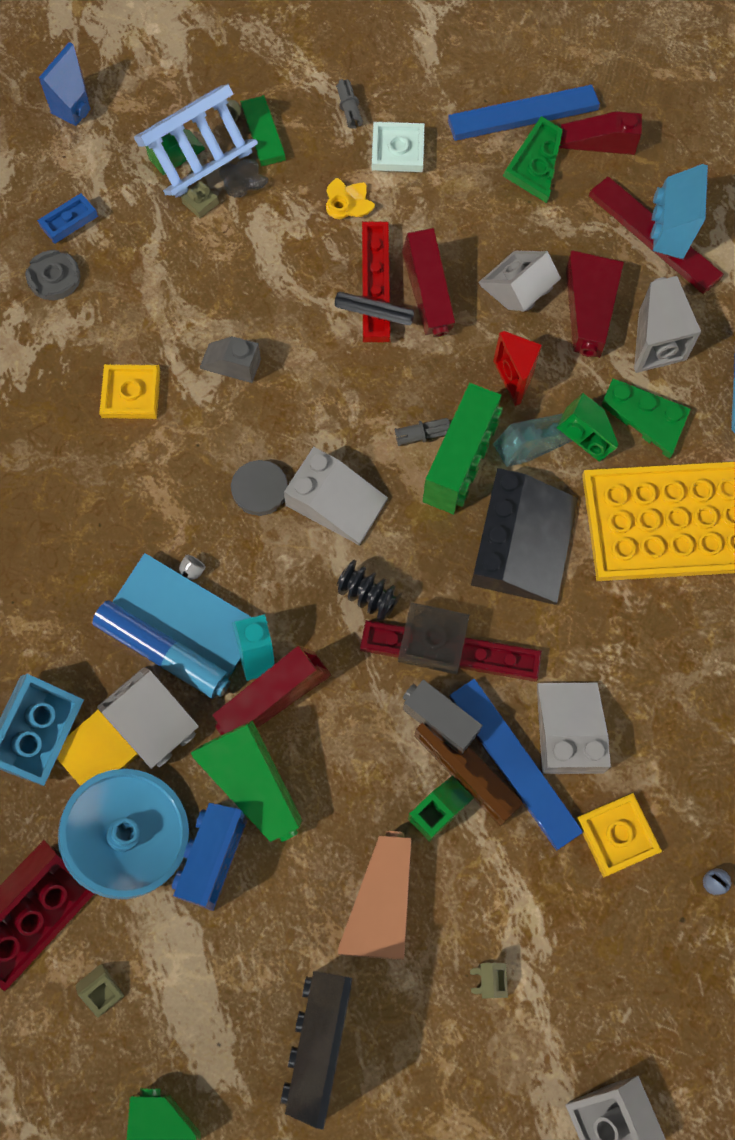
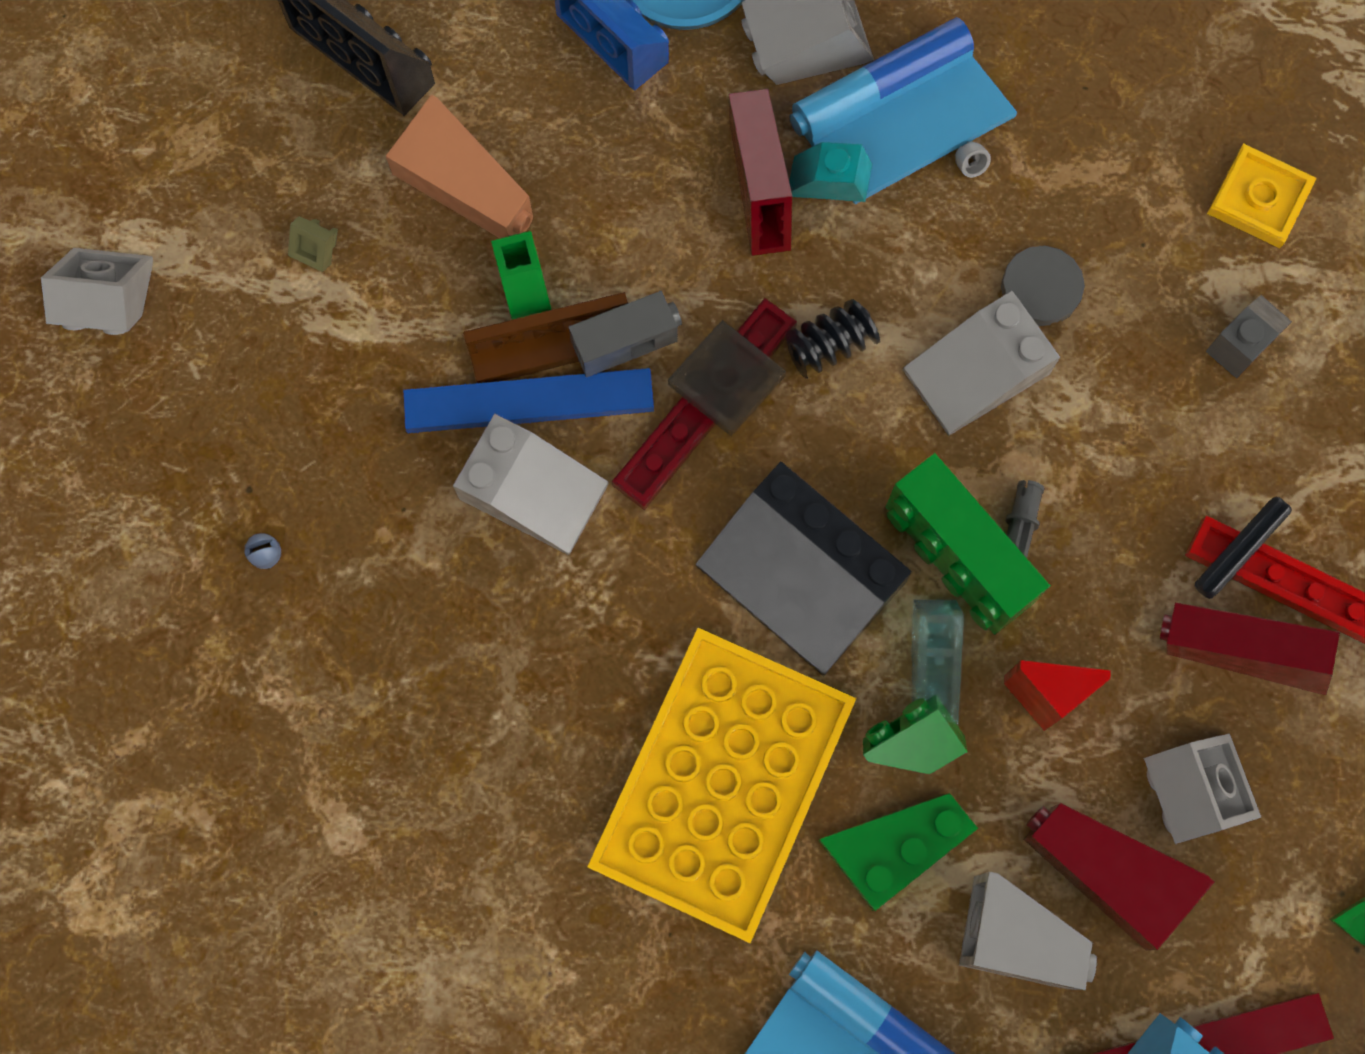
camera: 120 degrees right, 5 degrees up
(251, 780) = (668, 93): green slope -> none
(618, 835) = (380, 471): yellow tile -> none

